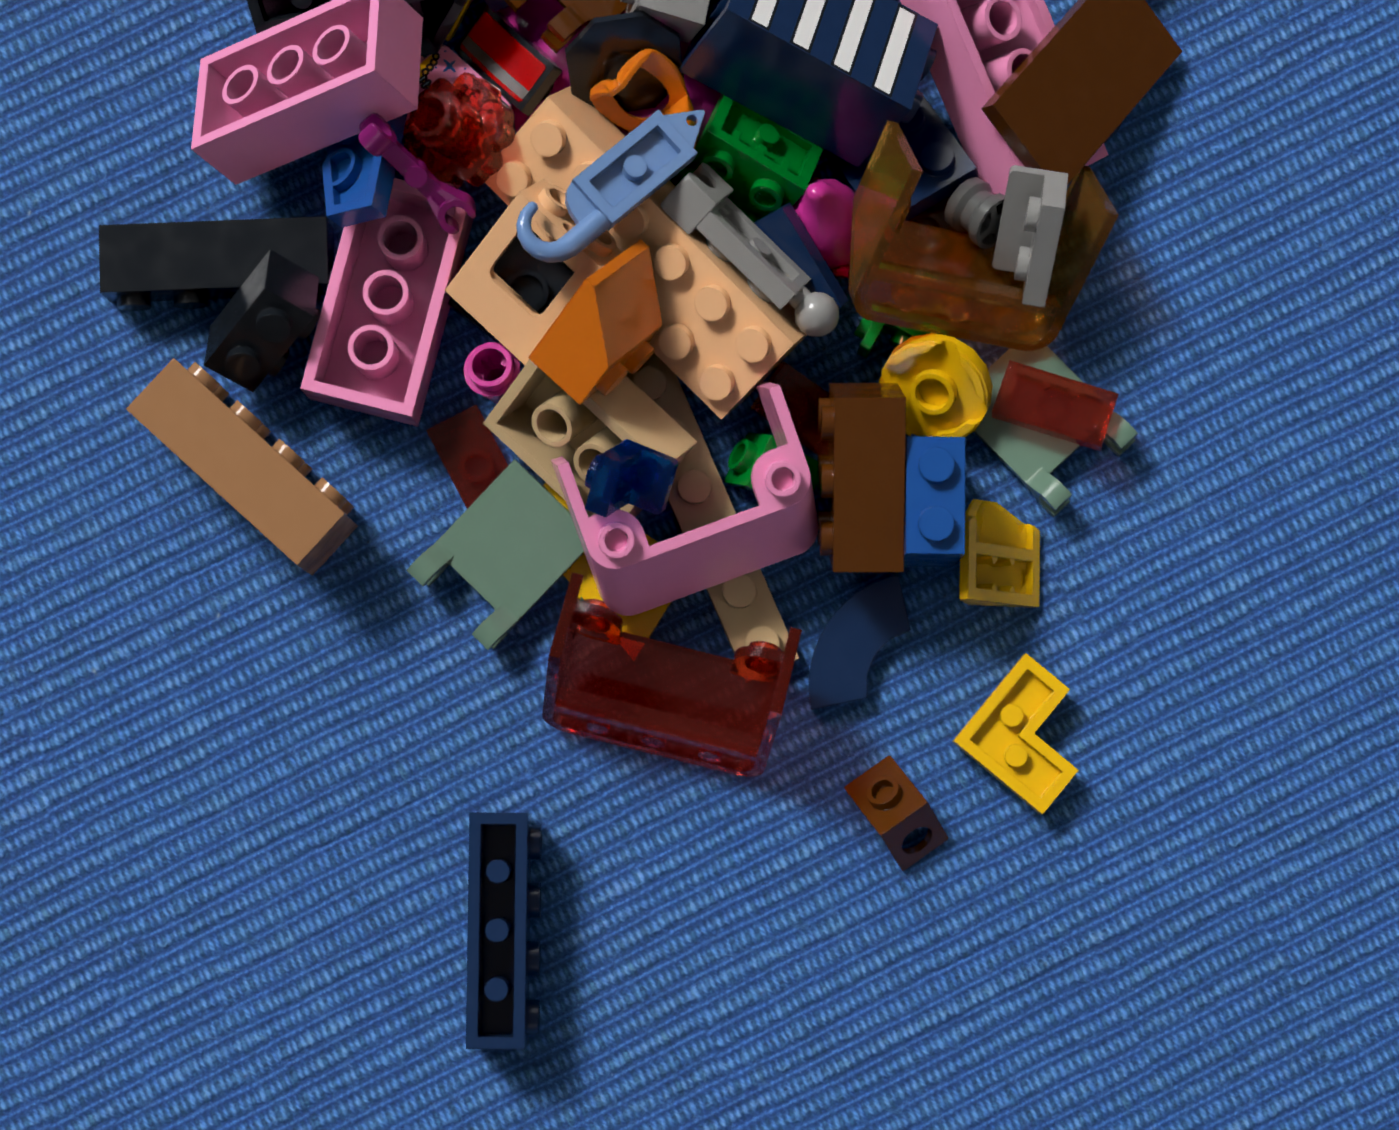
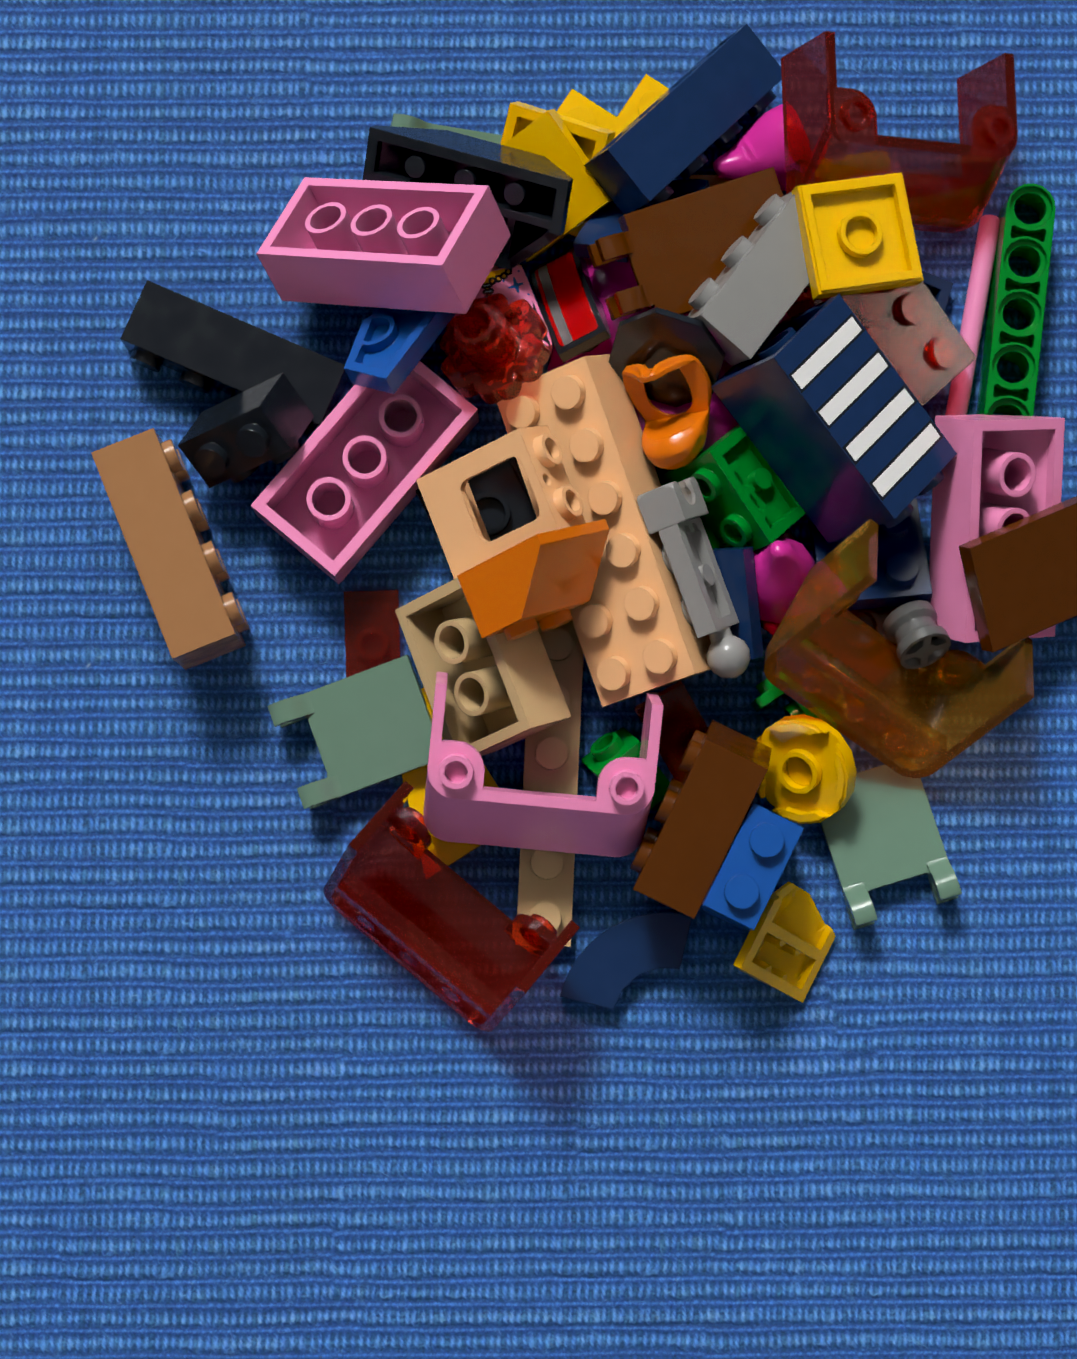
camera: 25 degrees right, 0 degrees up
(380, 140) = (421, 325): magenta piece -> none
(491, 370) = (423, 561): dark pink cone -> none
(499, 930) = (195, 1057): dark blue brick -> none
(617, 183) = (607, 461): medium blue plate -> none
(631, 476) = (495, 720): clear blue bracket -> none
(895, 810) = (590, 1120): reddish brown bracket -> none
(1004, 738) = (715, 1106): yellow plate -> none
(1031, 229) = (952, 671): light grey bracket -> none
(1054, 405) = (900, 834): clear red plate -> none

